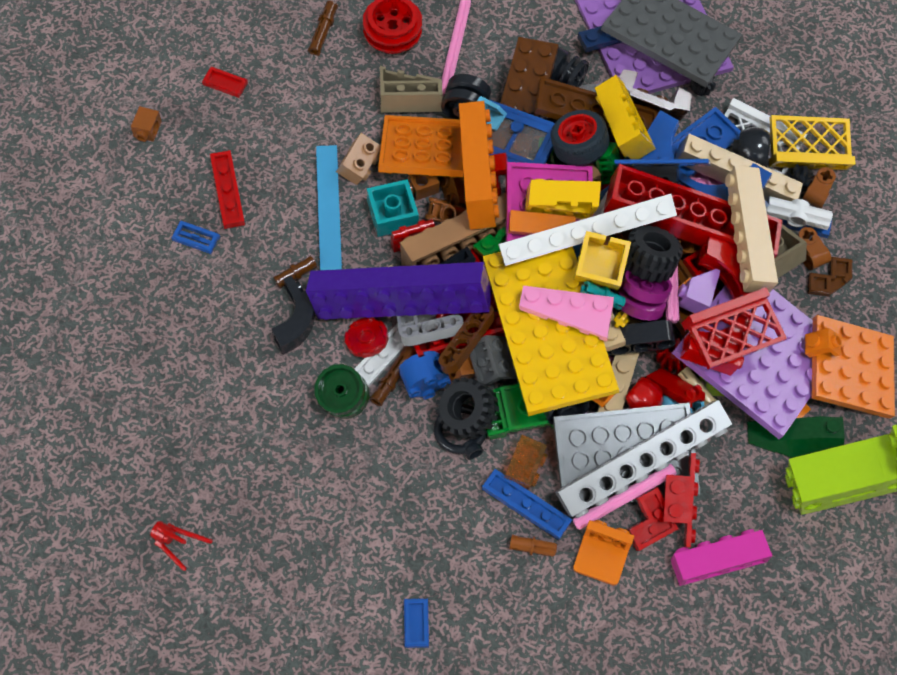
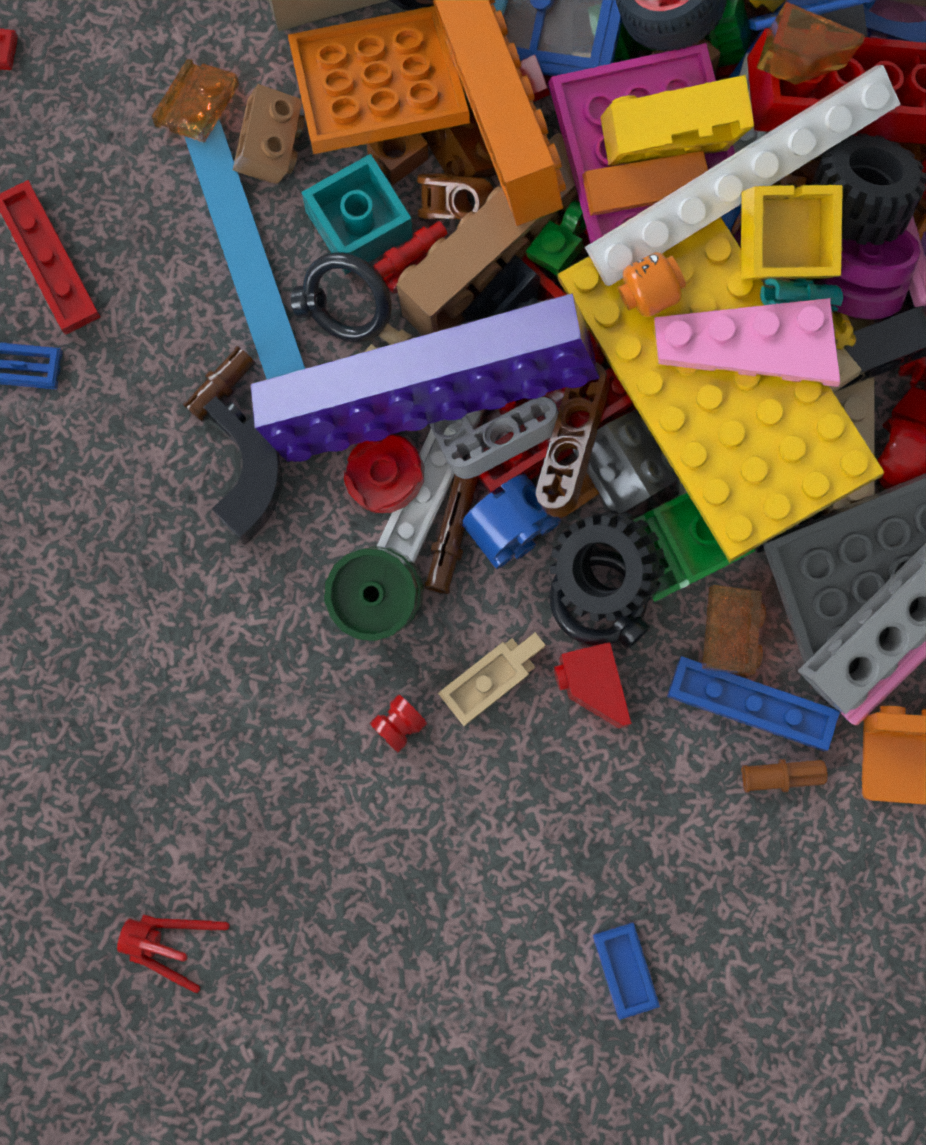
camera: 15 degrees left, 15 degrees up
(327, 134) = (195, 100): none -> clear orange plate
(334, 462) = (401, 721): none -> red wheel
(355, 244) = (311, 300): none -> black piece
(390, 453) = (491, 678): none -> tan hinge
(443, 469) = (594, 683): none -> red slope
(525, 269) = (652, 284): none -> orange head
(635, 176) = (806, 45): none -> clear orange slope

